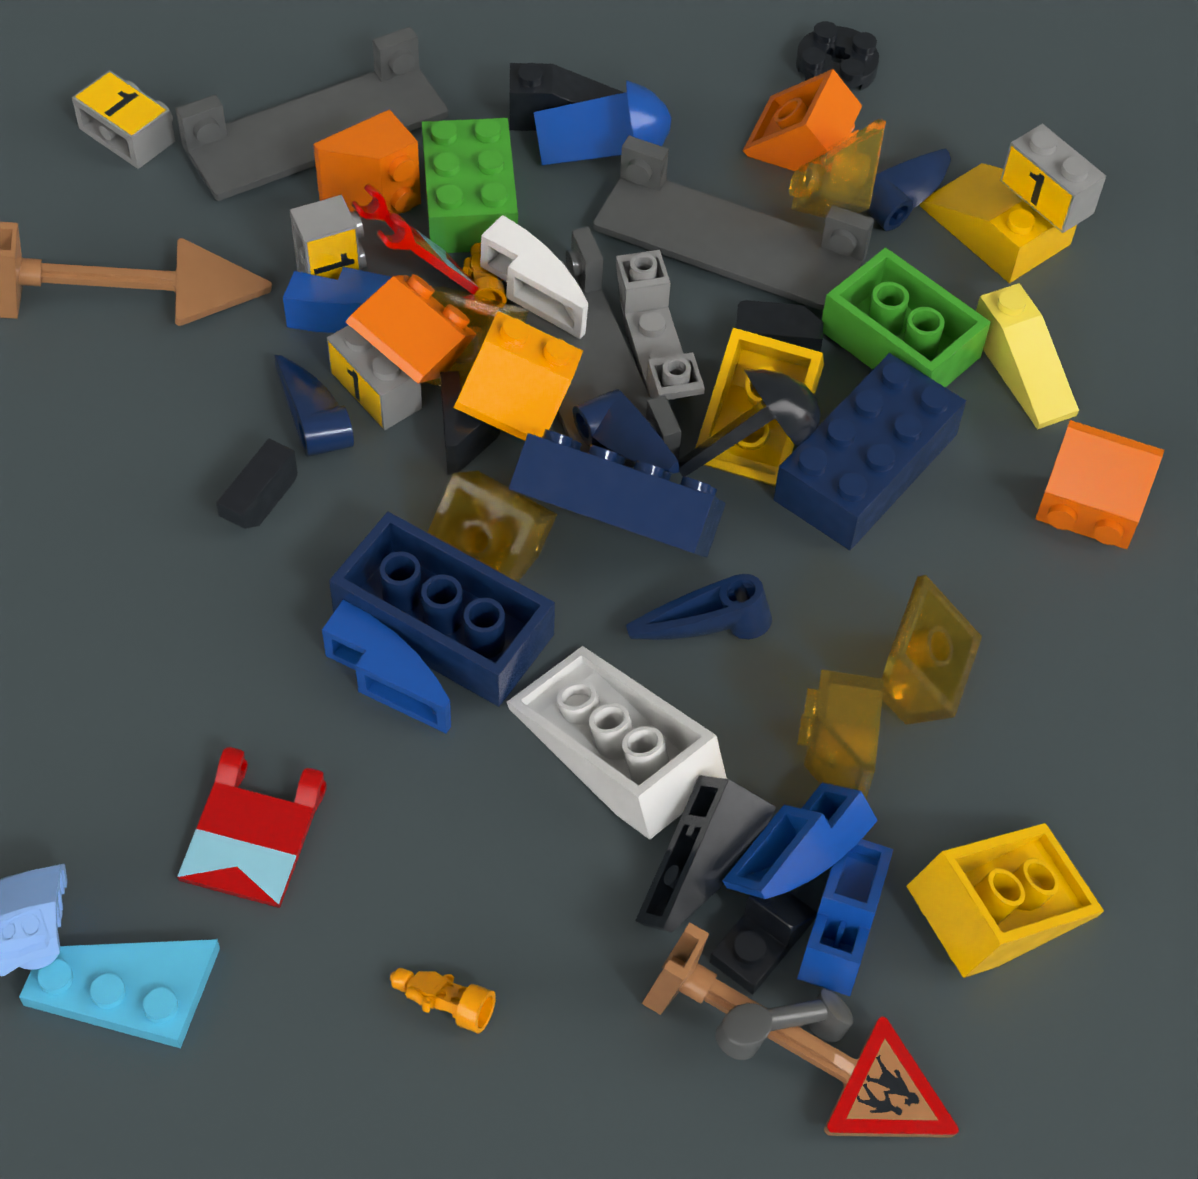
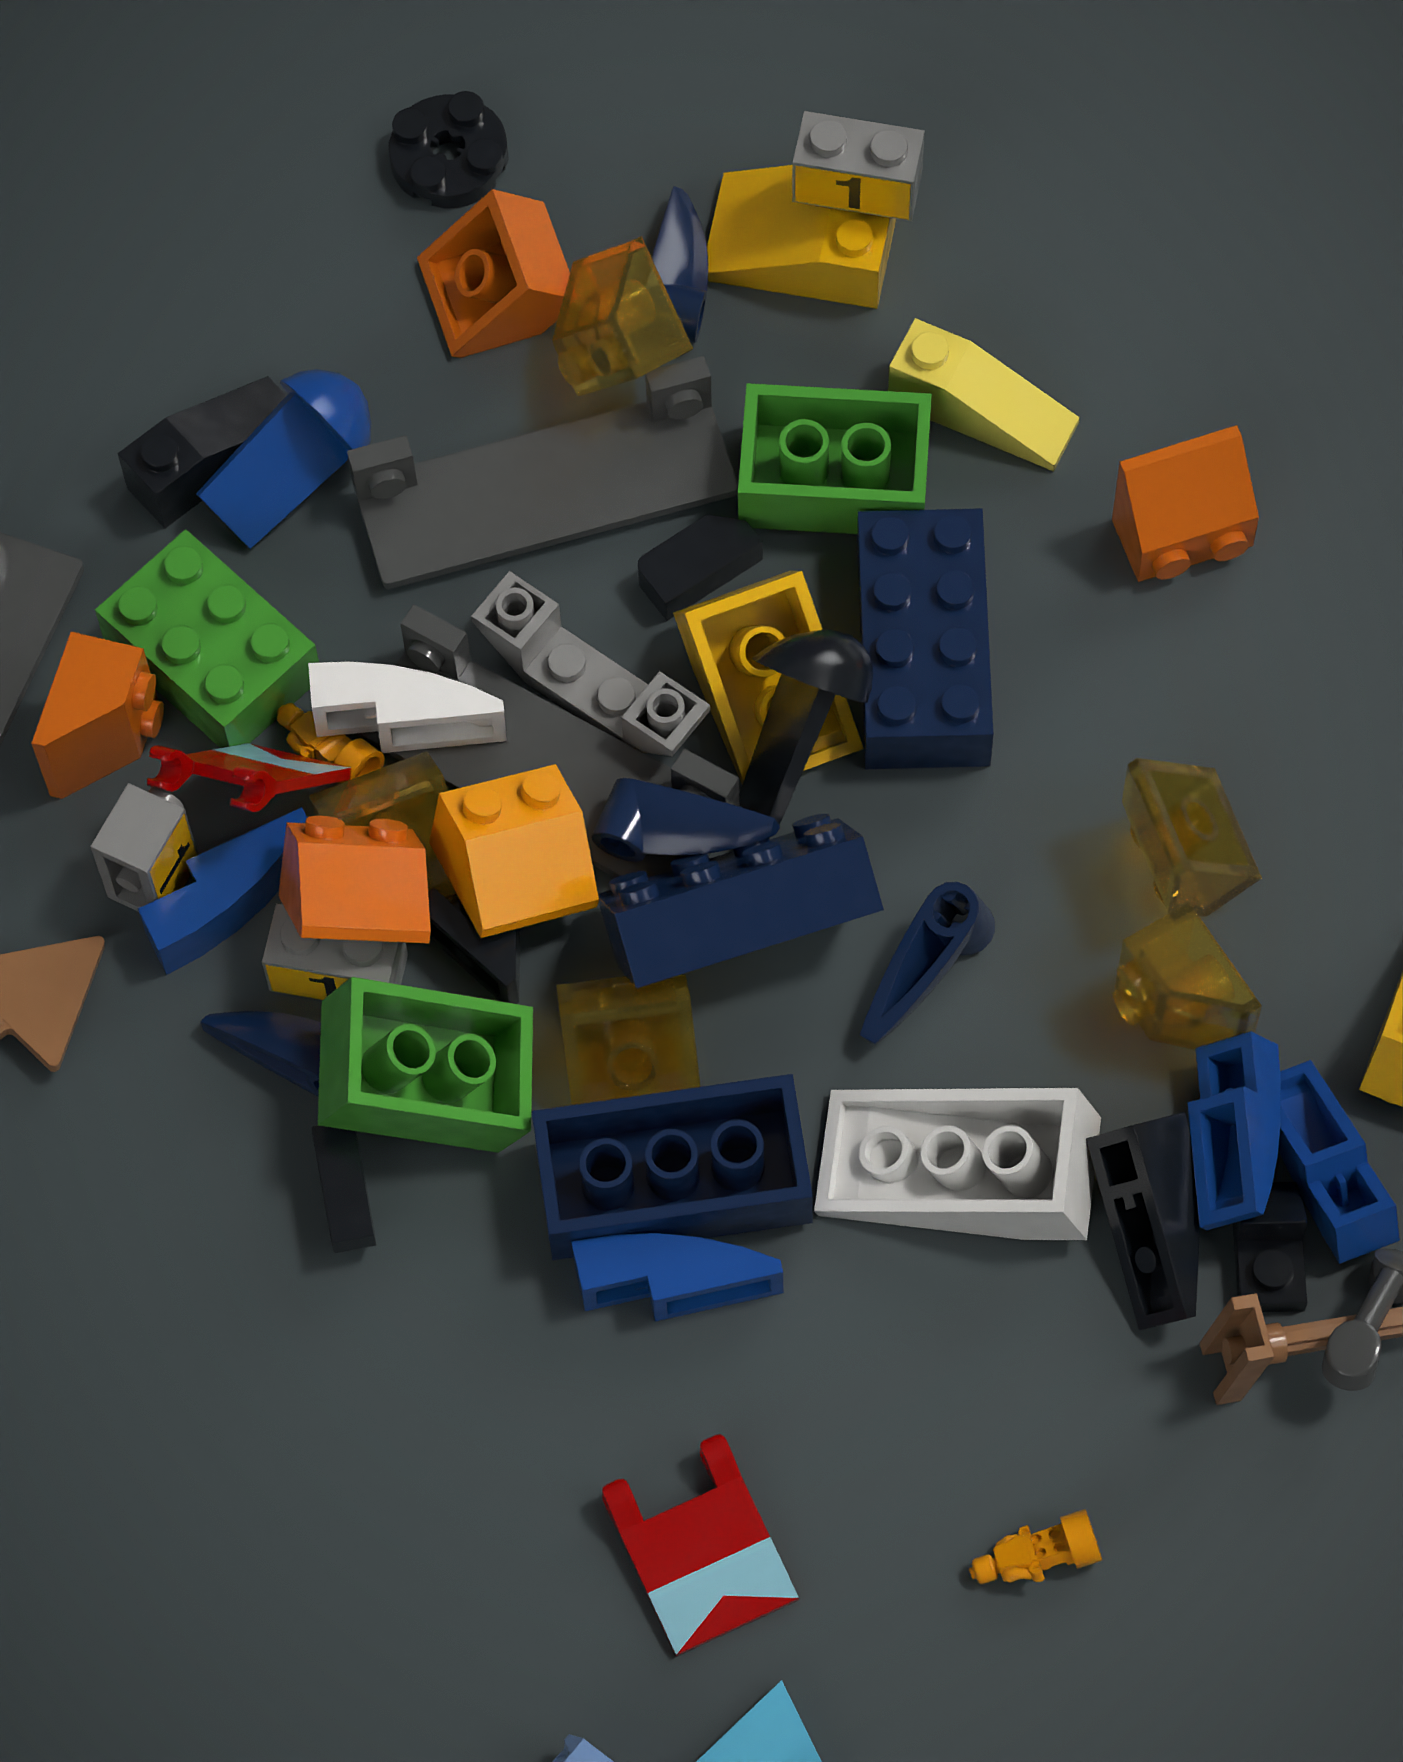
camera: 35 degrees left, 10 degrees up
(355, 446) = (425, 1065): none -> bright green brick

